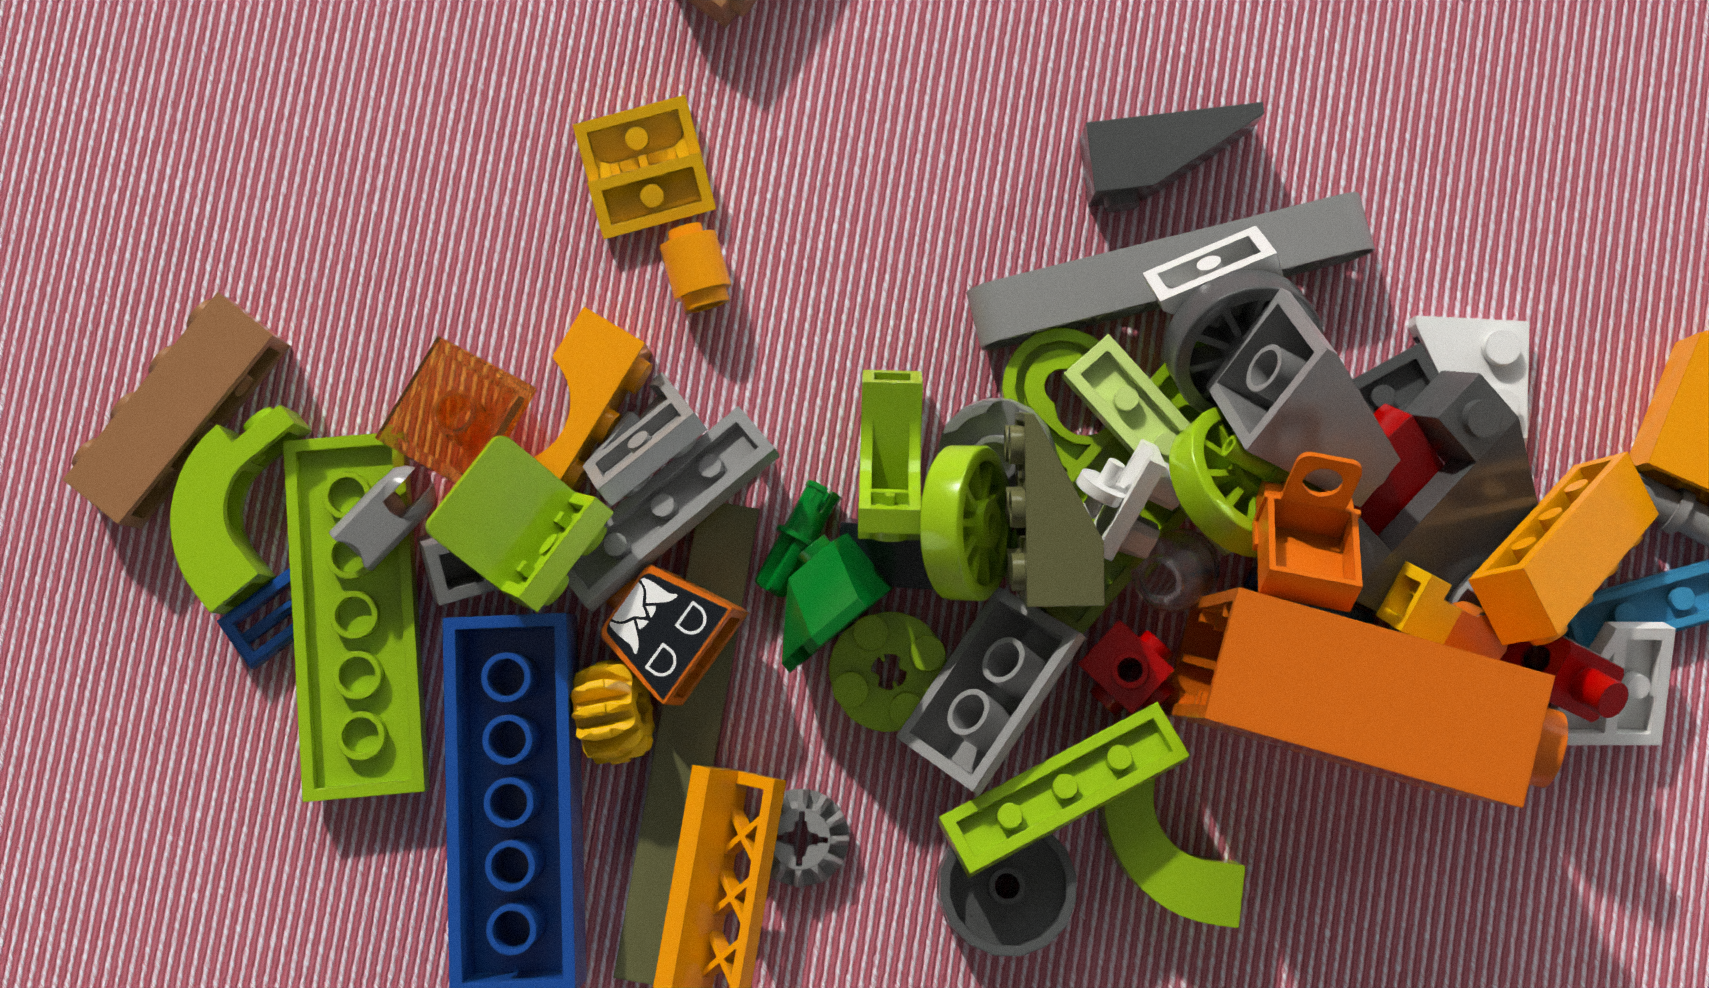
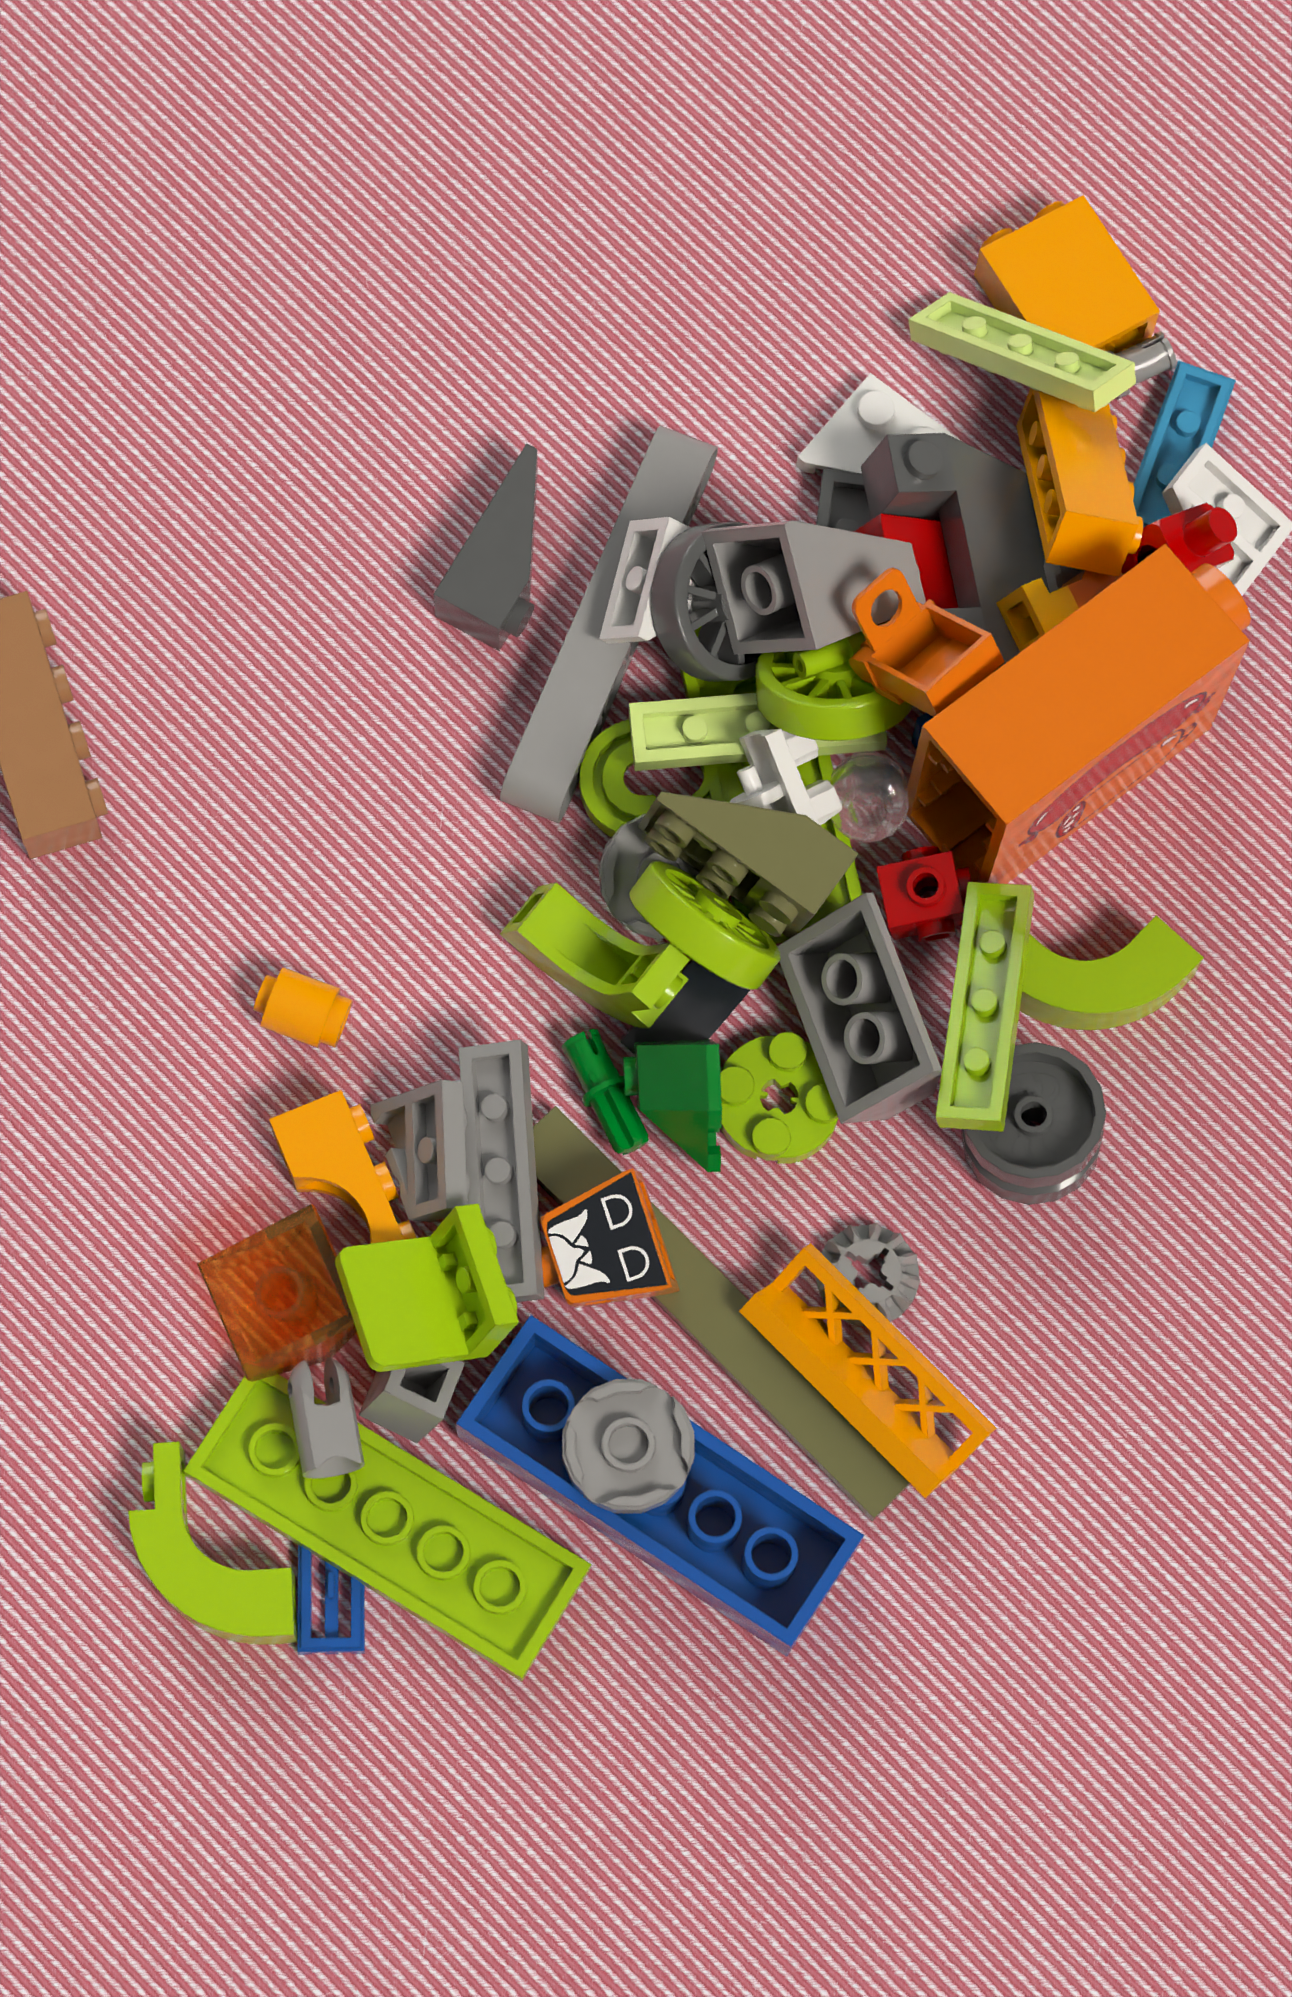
camera: 60 degrees left, 10 degrees down
(184, 396) = (80, 1549): medium nougat brick -> none
(512, 762) = (628, 1446): none -> light grey tile
(612, 713) = (643, 1345): yellow gear -> none
(644, 166) = (175, 991): yellow slope -> none
(1639, 431) = (1022, 351): none -> yellowish green plate

